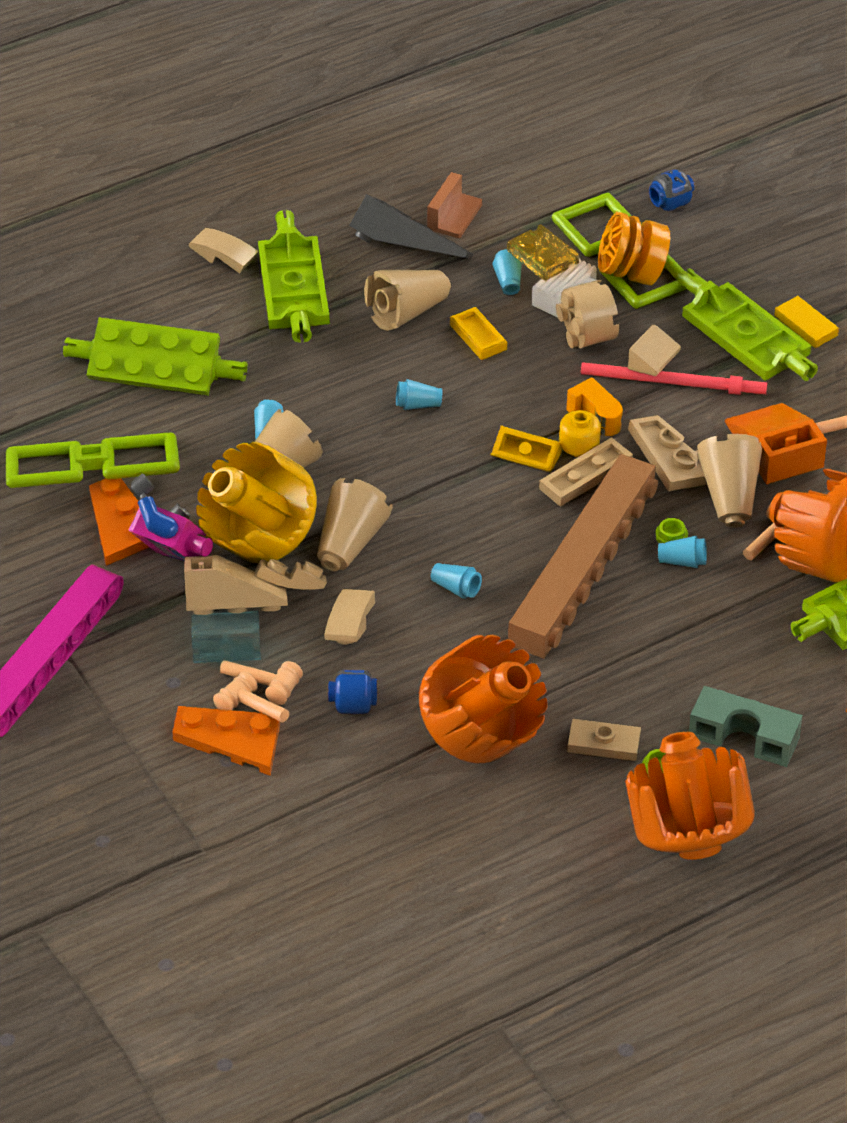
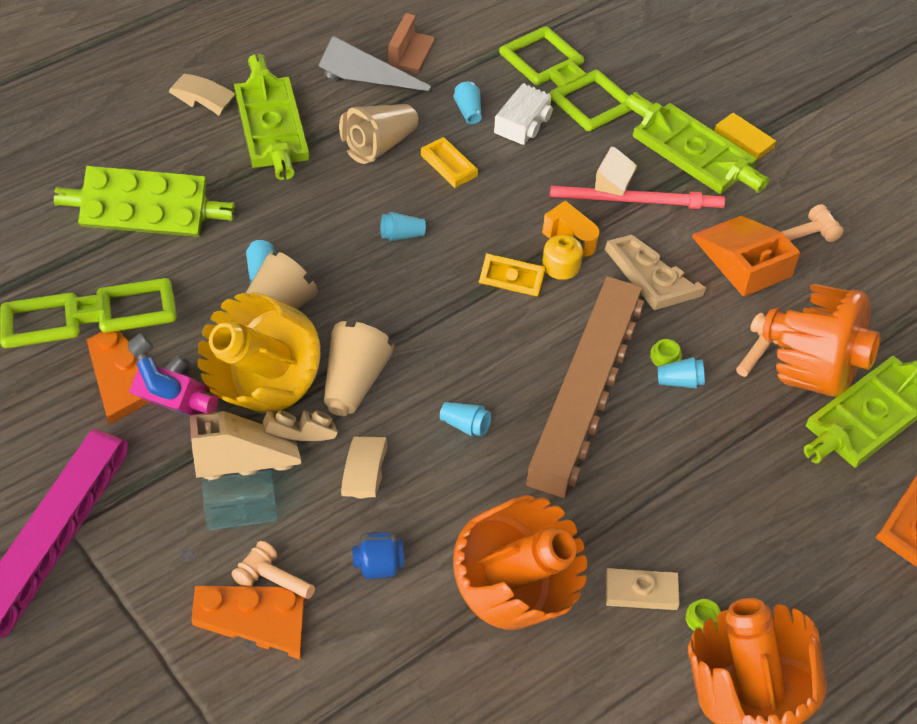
camera: 10 degrees left, 5 degrees up
(279, 684) = (300, 550): light nougat piece -> none
(542, 252) = (501, 83): clear yellow plate -> none
(582, 472) = (571, 296): tan plate -> none
(588, 314) = (551, 139): tan brick -> none
(634, 248) = (583, 75): light orange wheel -> none
(671, 189) = (602, 21): blue head -> none
(724, 713) = (811, 565): sand green arch -> none
(731, 475) = (716, 293): tan cone -> none

